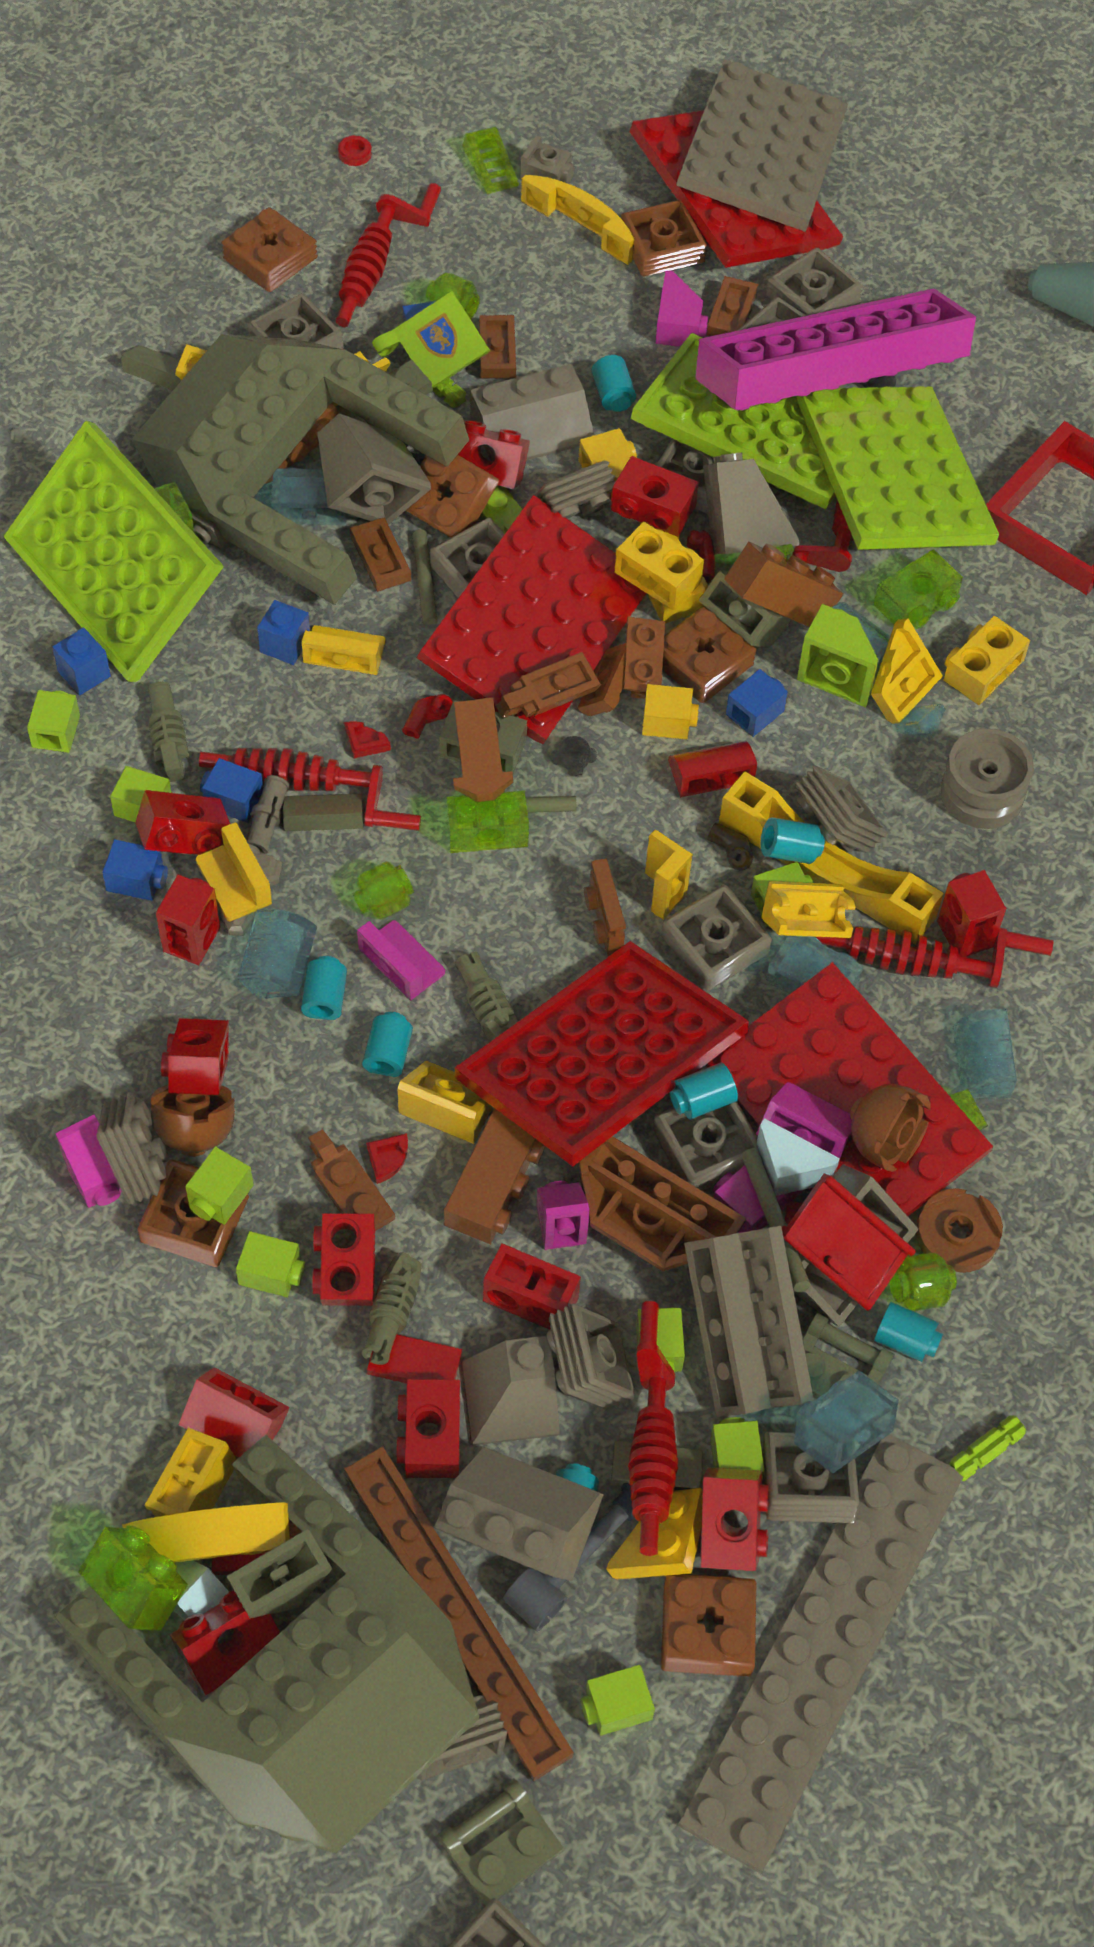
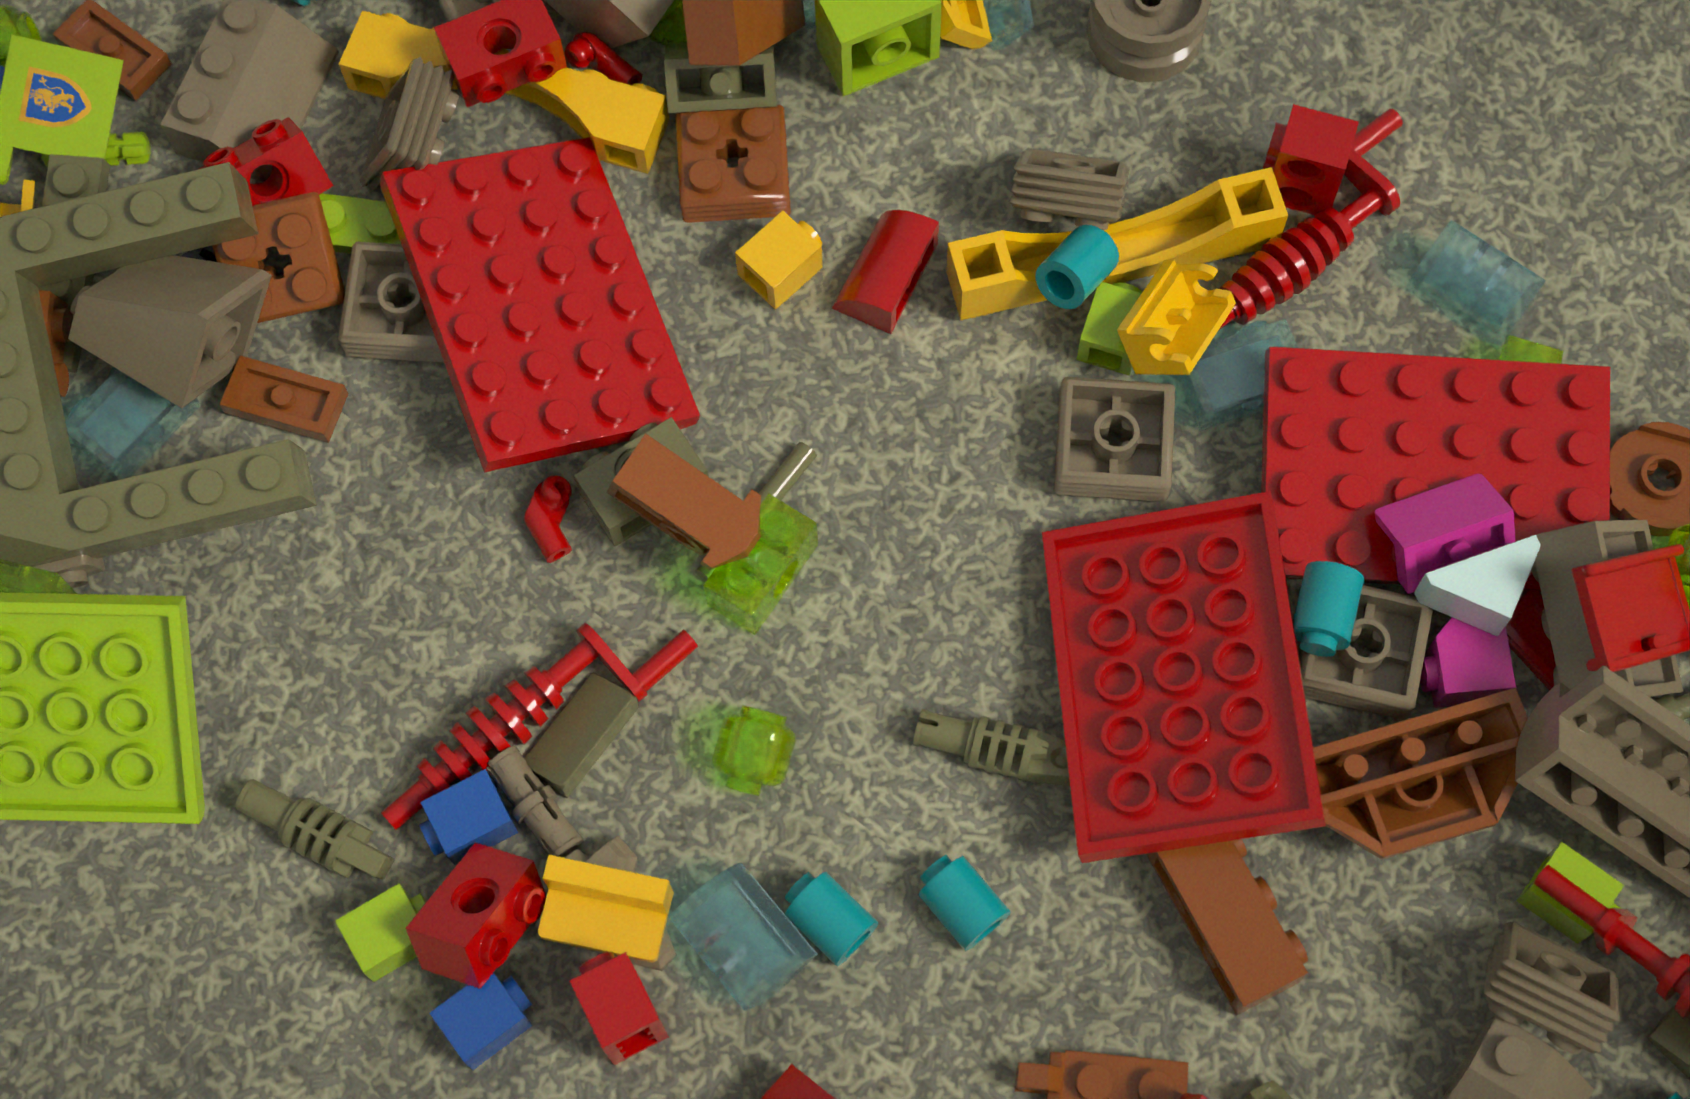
camera: 45 degrees left, 10 degrees up
(53, 721) = (182, 956): lime brick -> none
(81, 661) = (127, 859): blue brick -> none
(282, 632) = (300, 591): blue brick -> none
(343, 649) = (377, 539): yellow panel -> none
(365, 740) = (522, 612): red tile -> none
(387, 1156) = (1102, 1012): red tile -> none
(399, 957) = (853, 797): dark pink panel -> none
(424, 577) = (357, 375): olive bar -> none
(439, 1100) = (1081, 899): yellow slope -> none
(529, 1286) = (1412, 984): red brick -> none
(549, 687) = (652, 358): dark orange hinge -> none
(562, 1214) = (1340, 874): dark pink slope -> none
(577, 746) = (744, 387): clear smoke plate -> none
(603, 899) = (967, 515): dark orange plate -> none
(611, 677) = (682, 289): dark orange plate -> none
(643, 655) = (691, 225): dark orange hinge -> none
(659, 565) = (601, 129): yellow brick -> none
(670, 869) = (1003, 415): yellow panel -> none
(736, 846) = (1006, 326): dark brown arm -> none
(756, 702) = (848, 159): blue brick -> none
(774, 1214) = (1530, 652): olive bar -> none
(889, 1124) = (1522, 452): dark orange cylinder -> none

